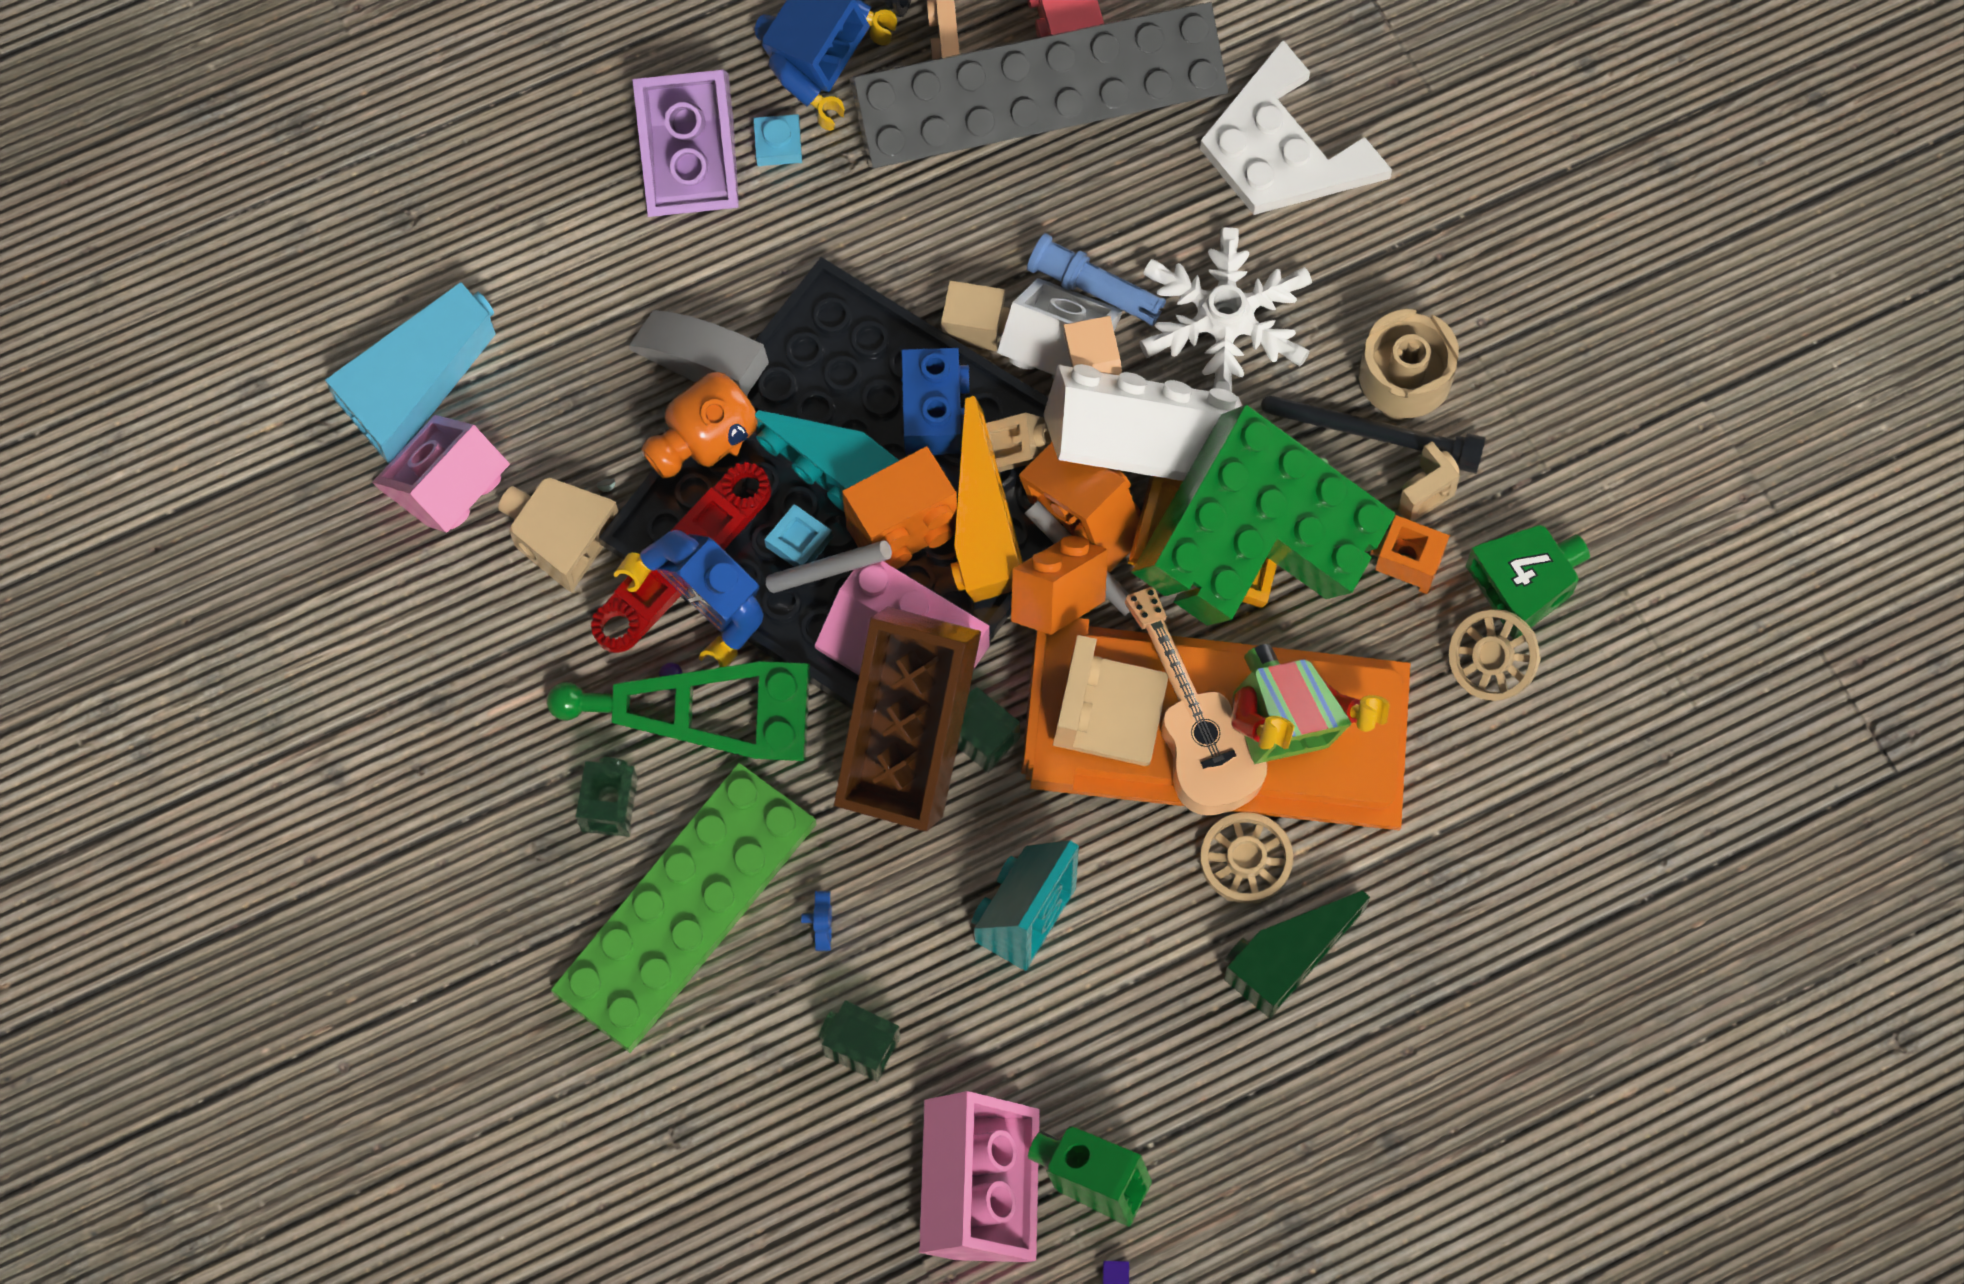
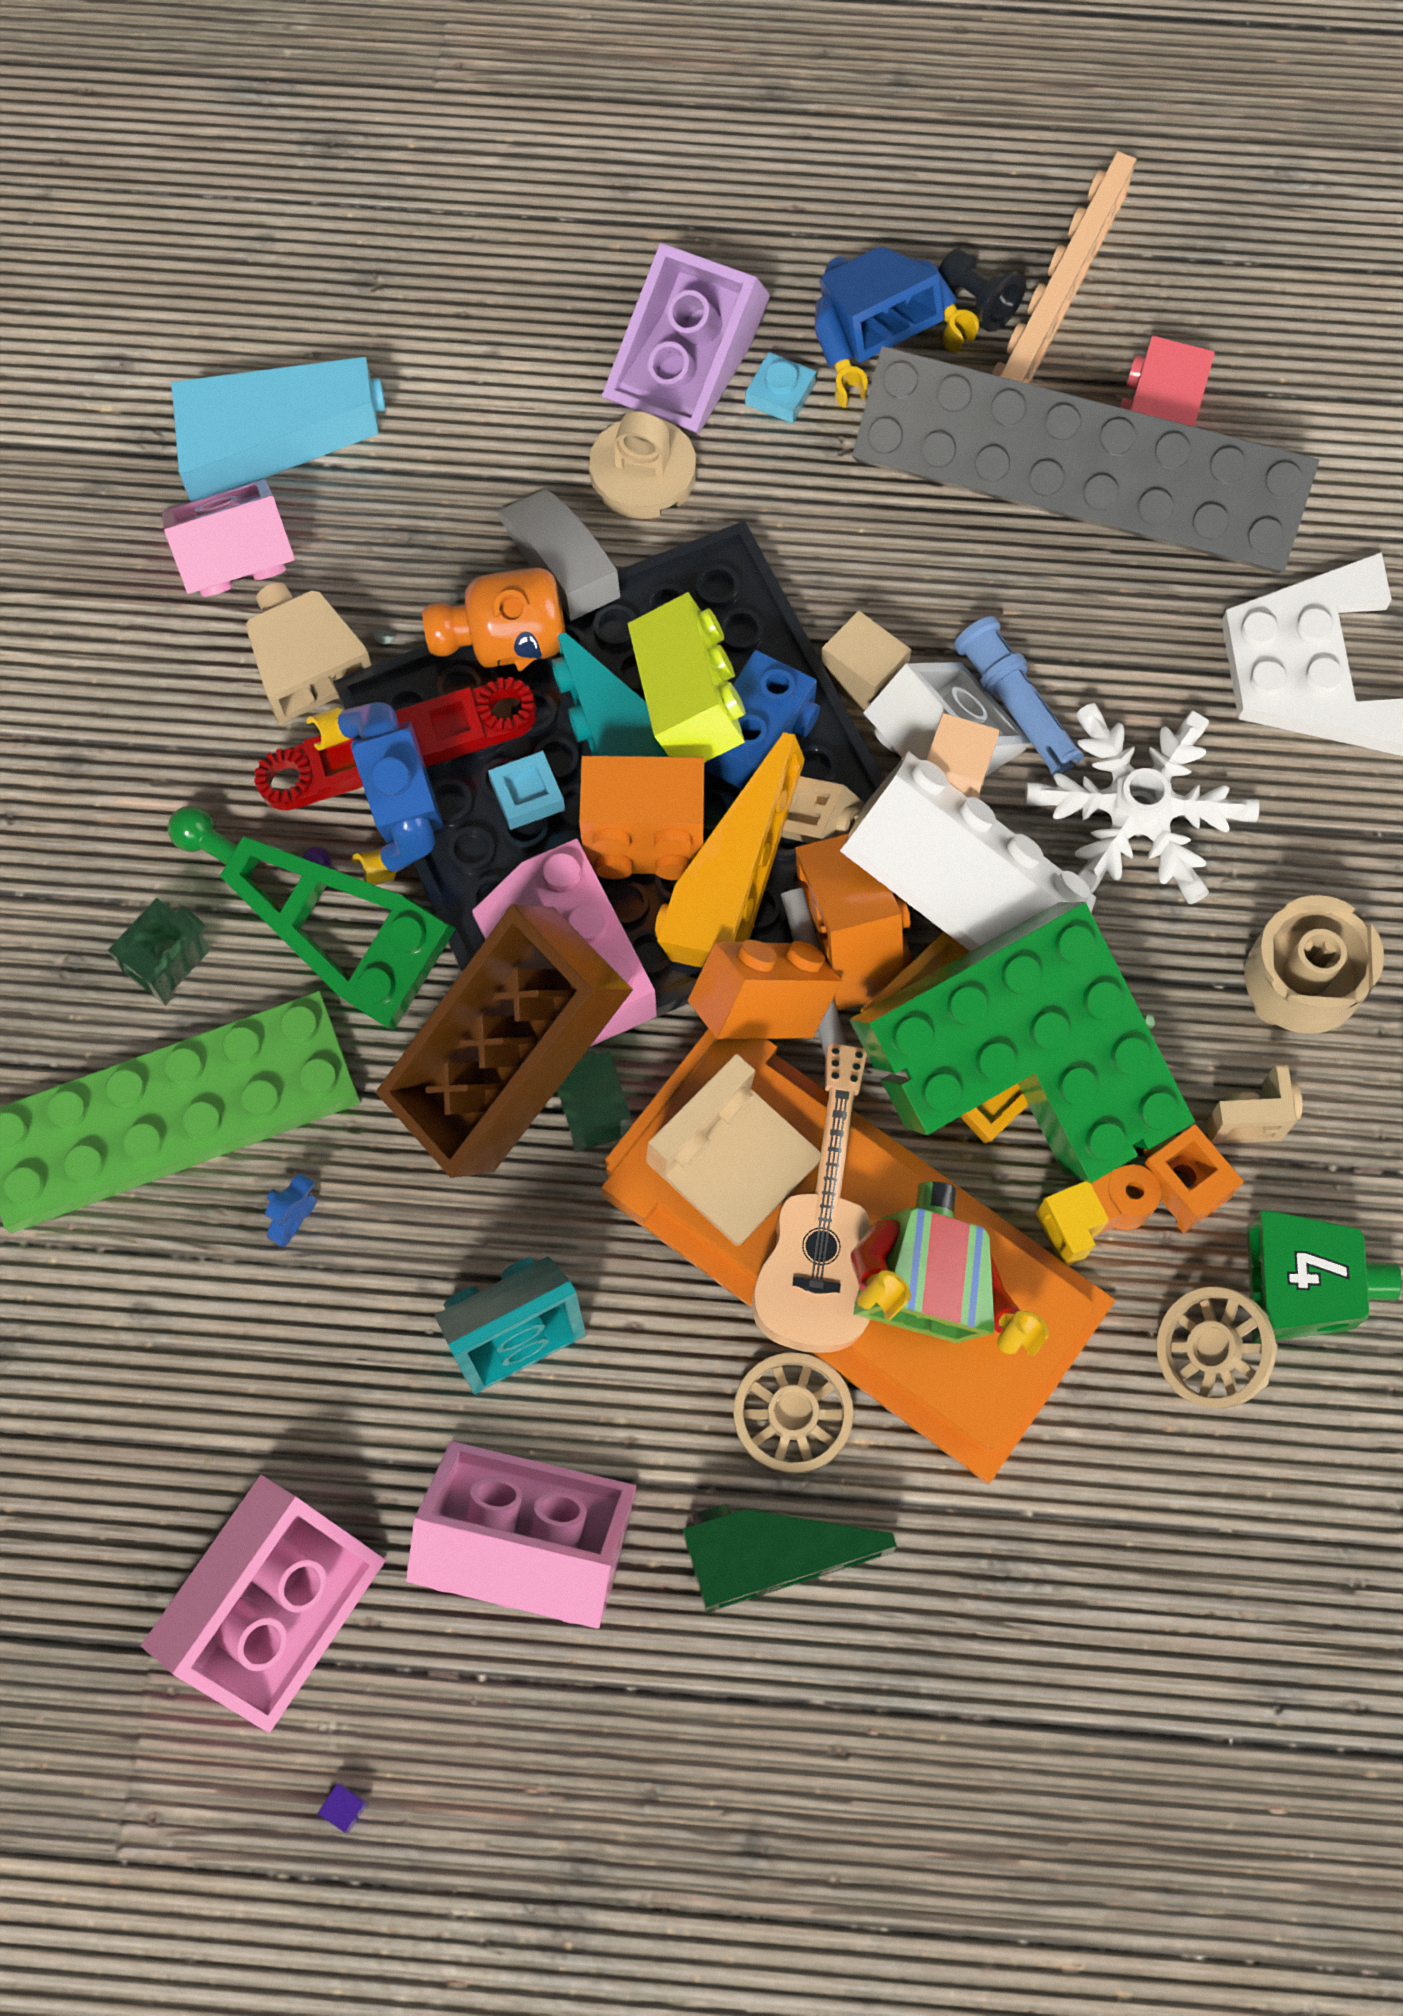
camera: 30 degrees right, 0 degrees up
(715, 254) = (642, 466): none -> tan tile
(829, 566) = (530, 833): light grey bar -> none
(859, 1040) = (240, 1364): clear green brick -> none
(870, 397) = (687, 680): none -> neon yellow brick
(1094, 1172) = (385, 1676): green torso -> none
(1122, 1036) = (520, 1534): none -> bright pink slope
(1355, 616) = (1117, 1201): none -> leg
(1464, 450) = (1320, 1097): black piece -> none

